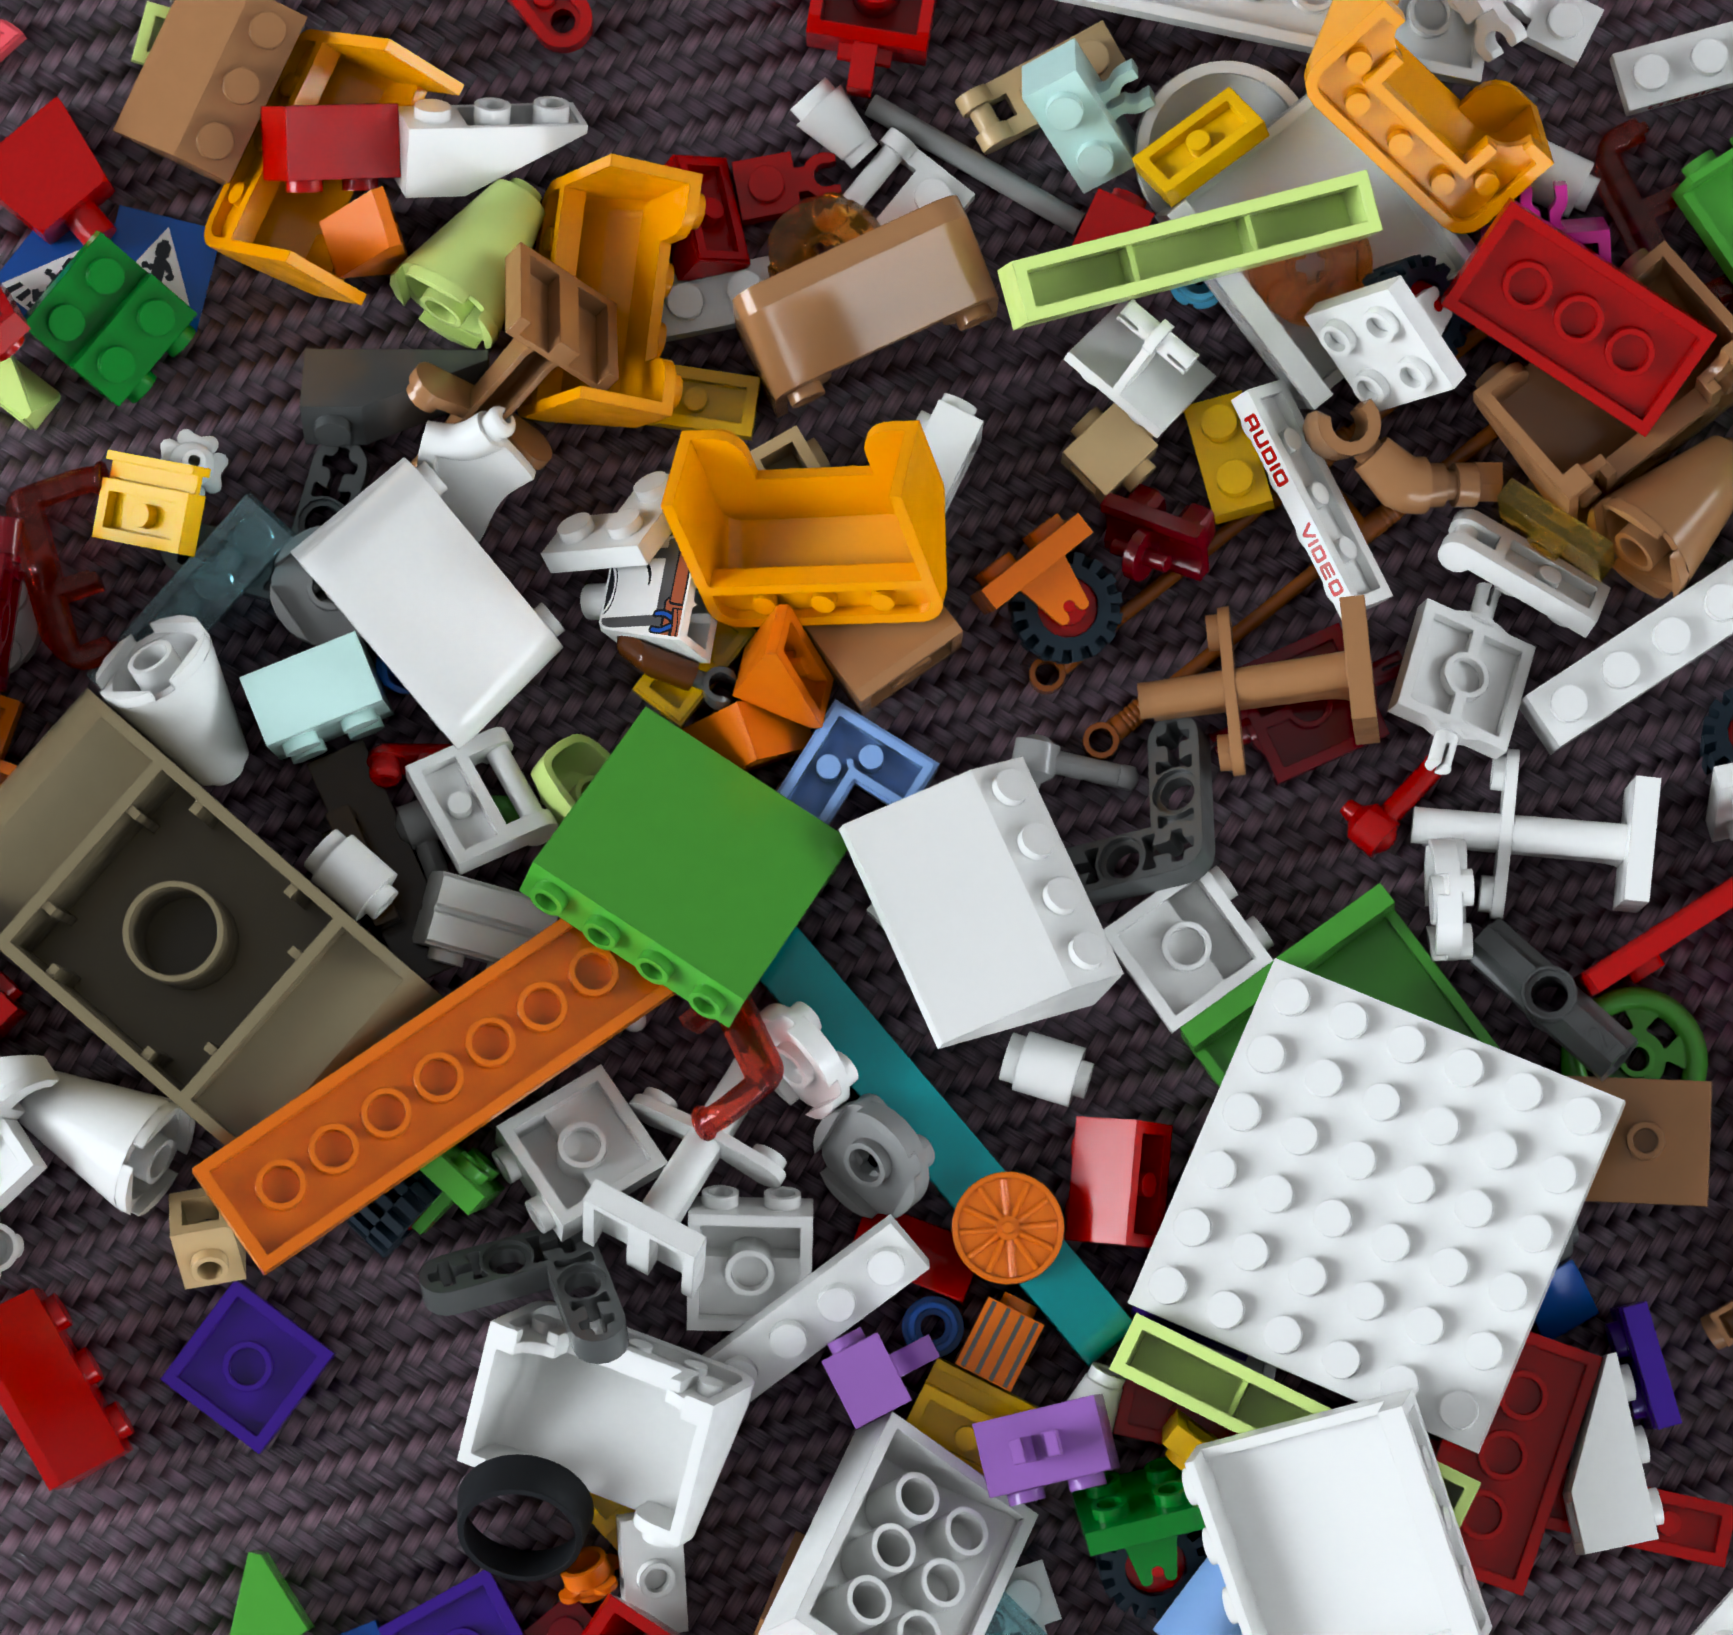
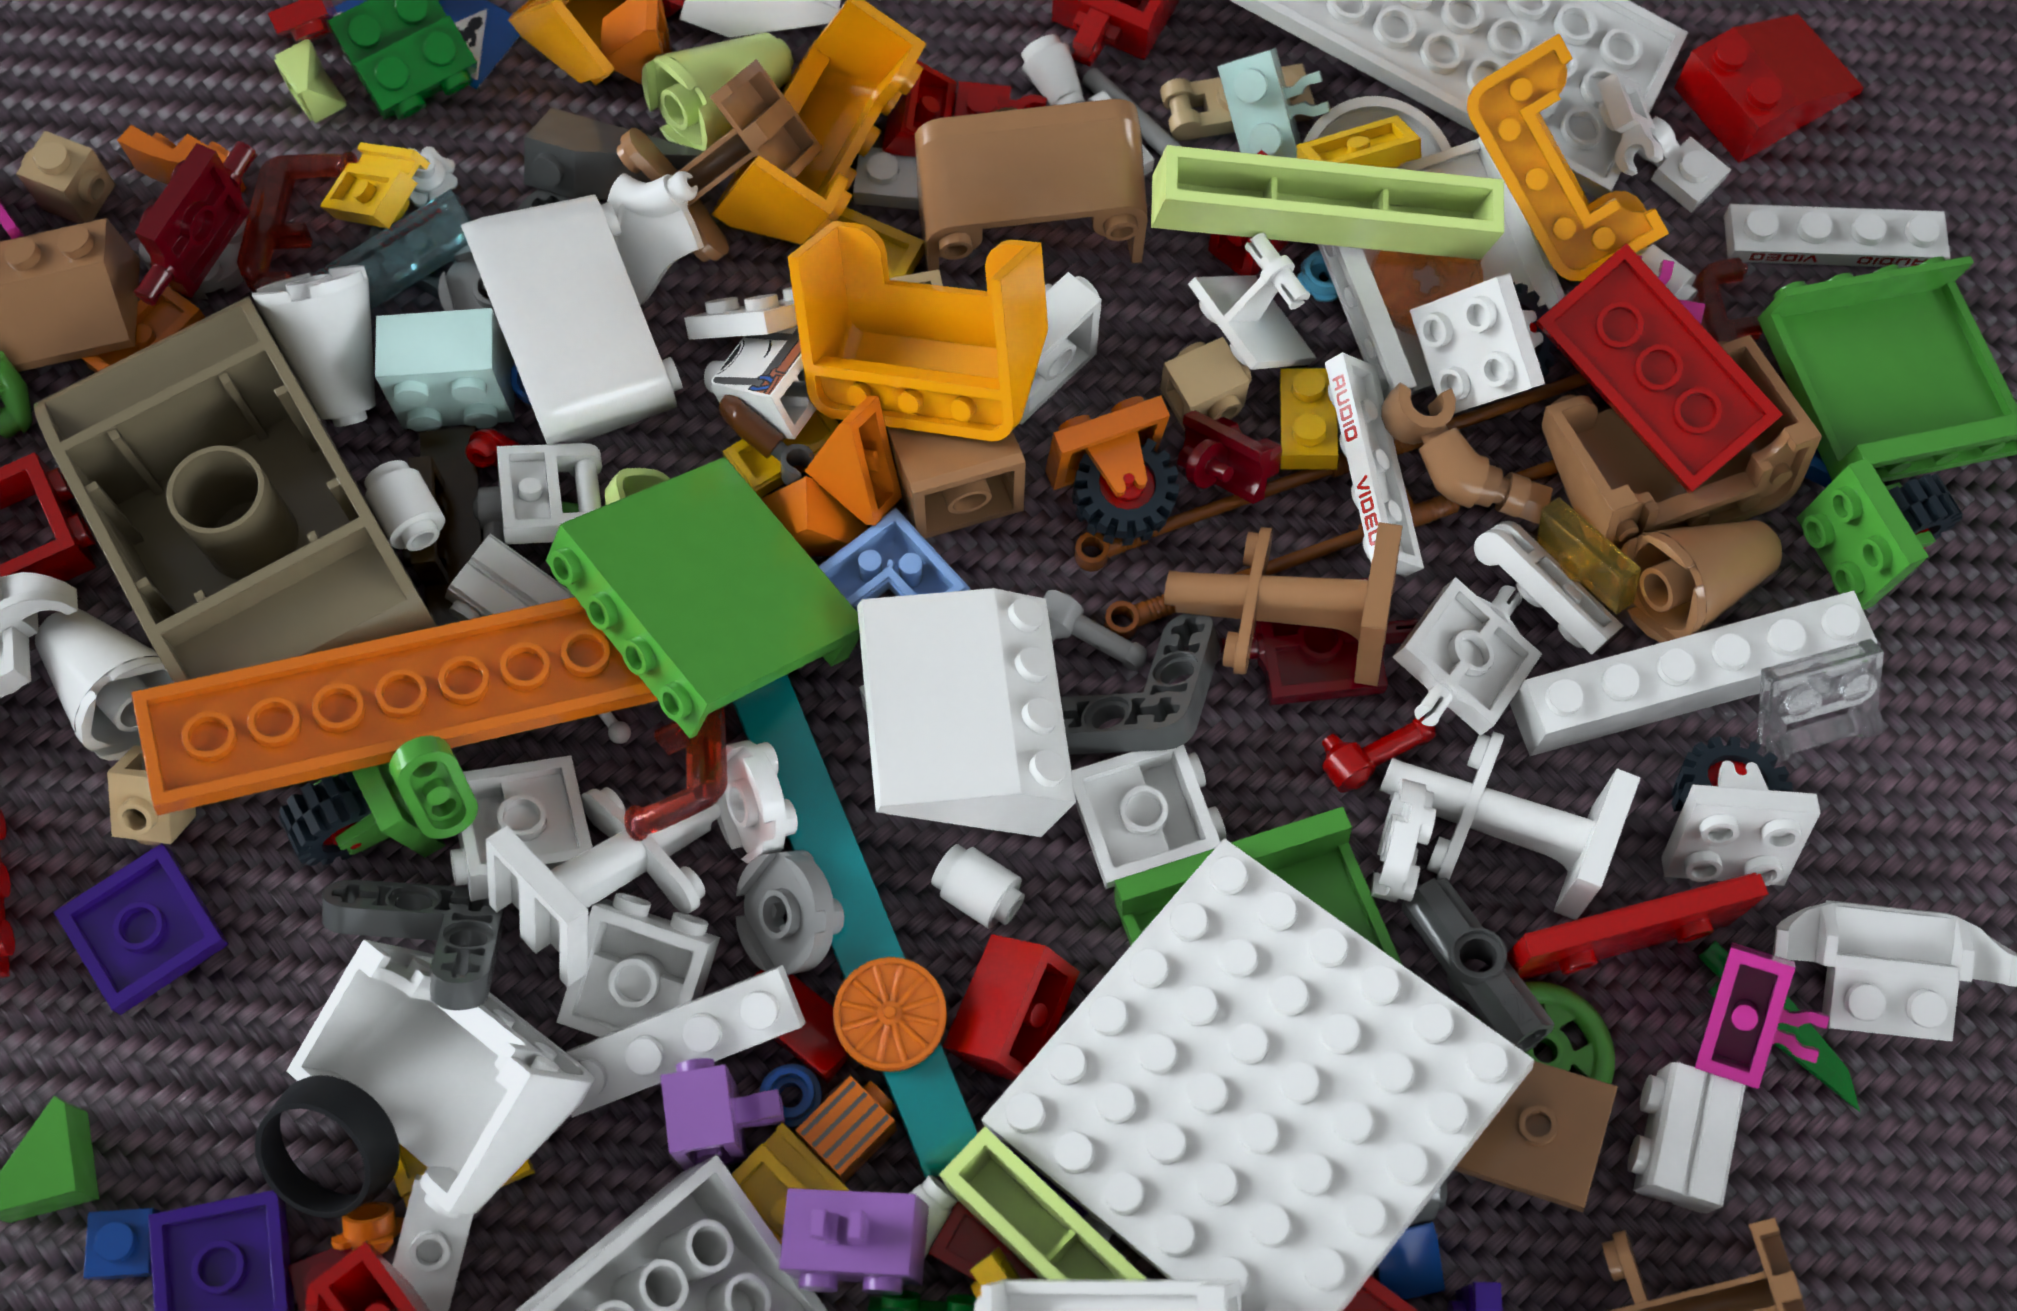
camera: 15 degrees right, 15 degrees down
(503, 1156) = (433, 787): none -> bright green plate

